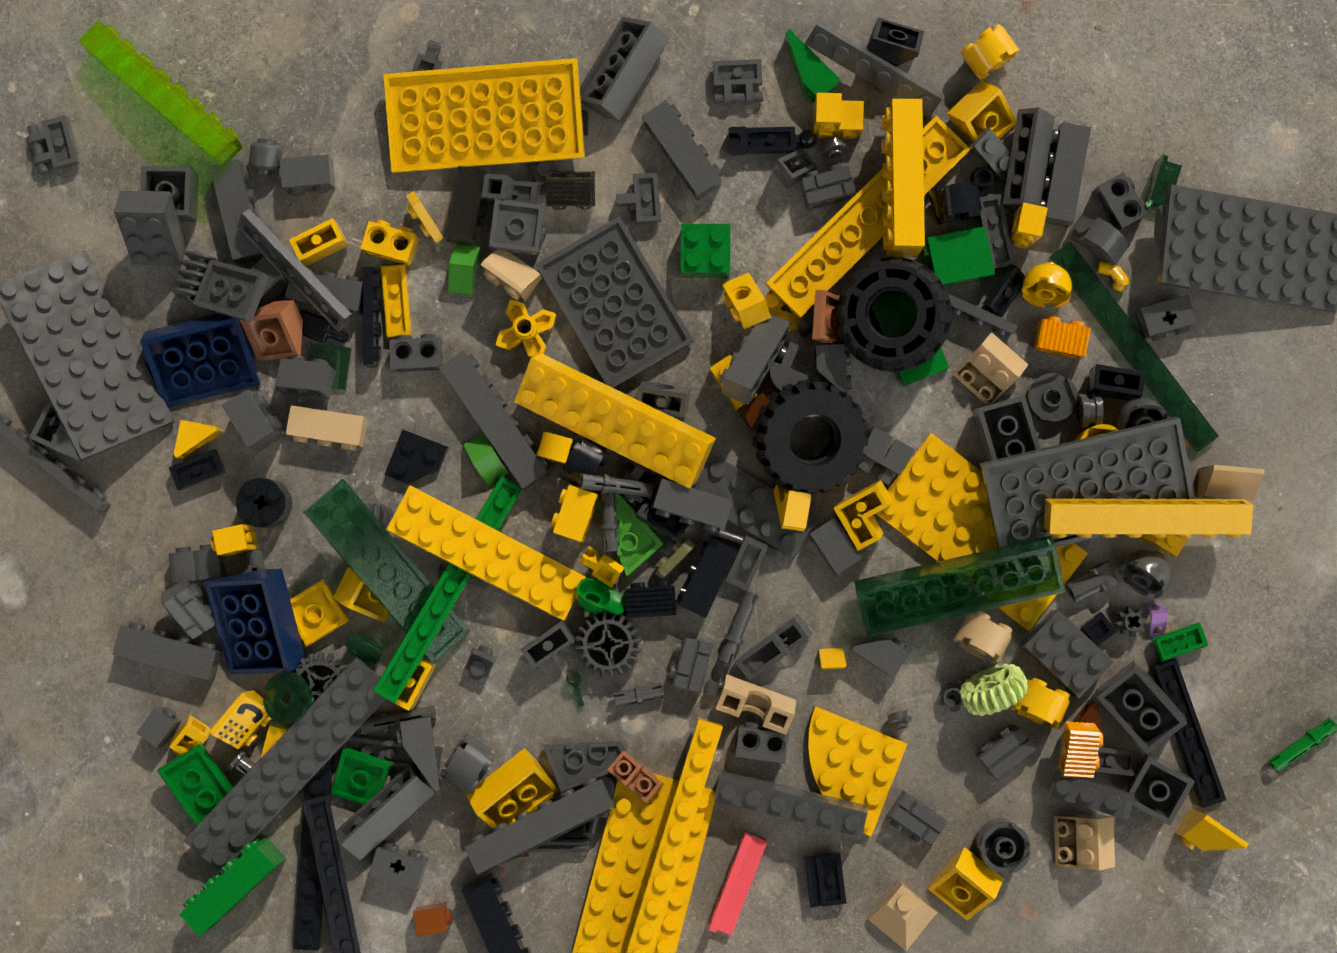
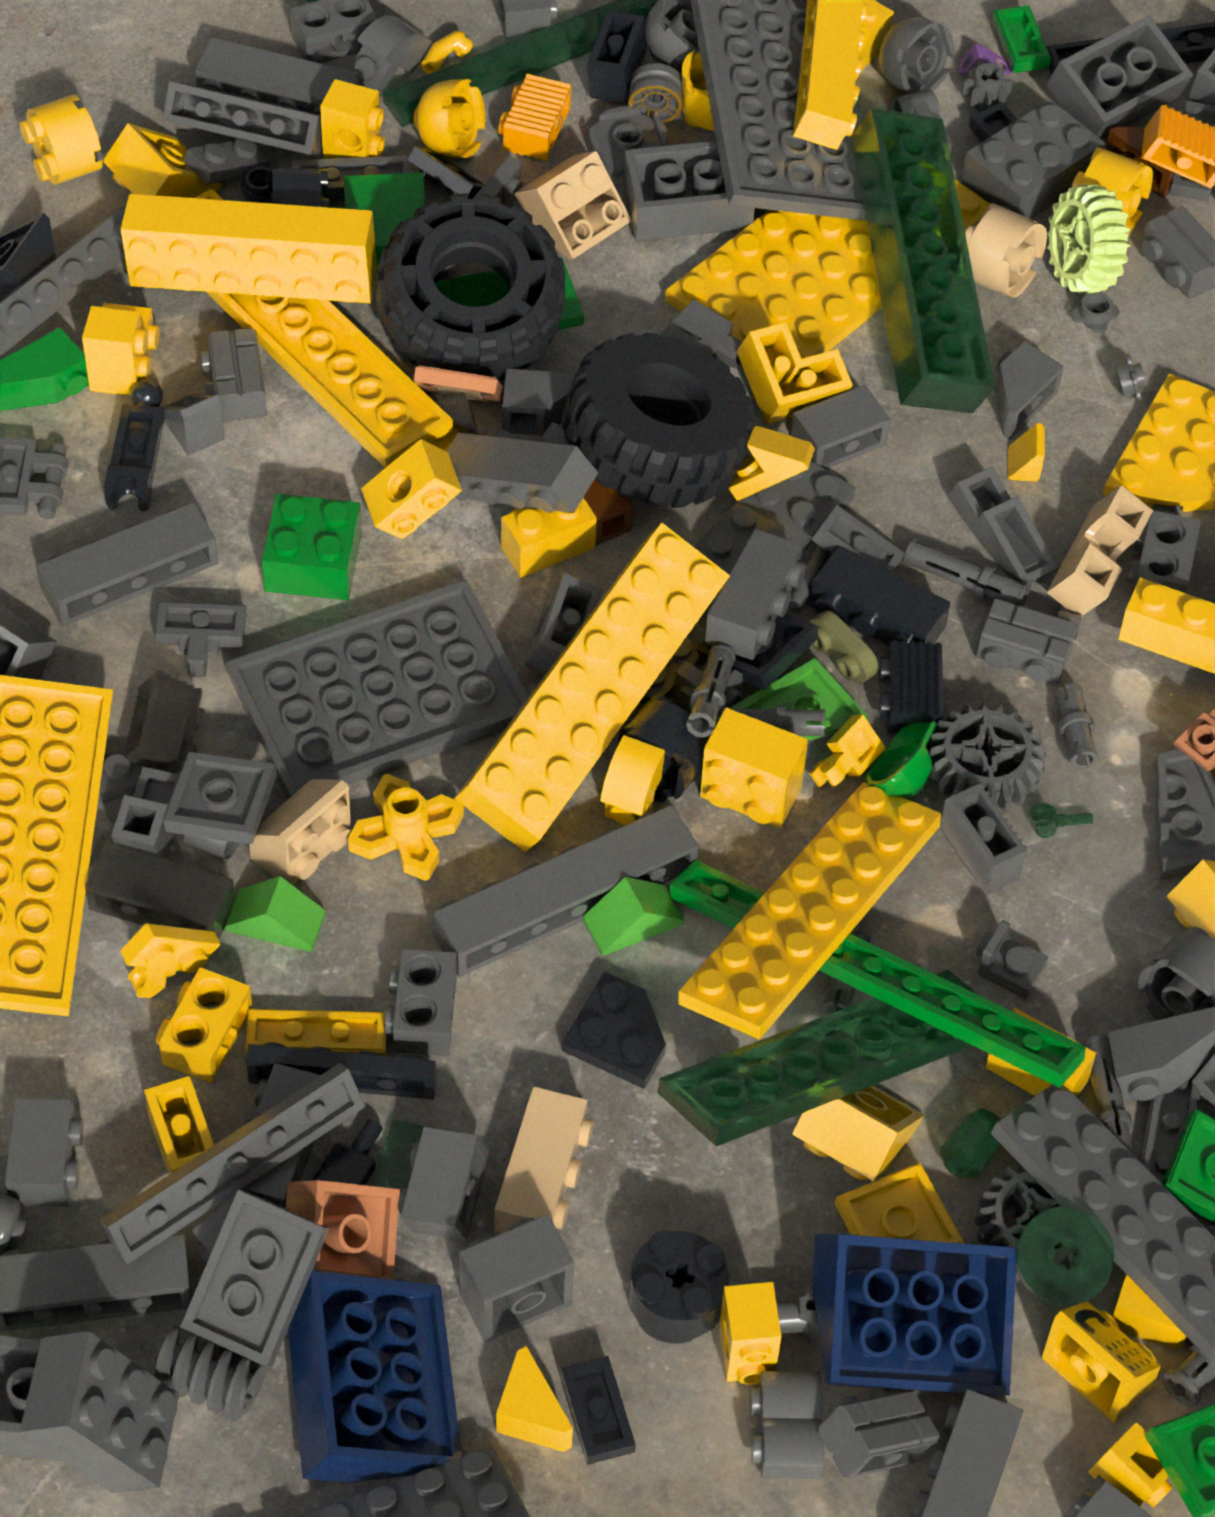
camera: 90 degrees left, 30 degrees down
(833, 148) = (171, 361): dark grey plate -> none

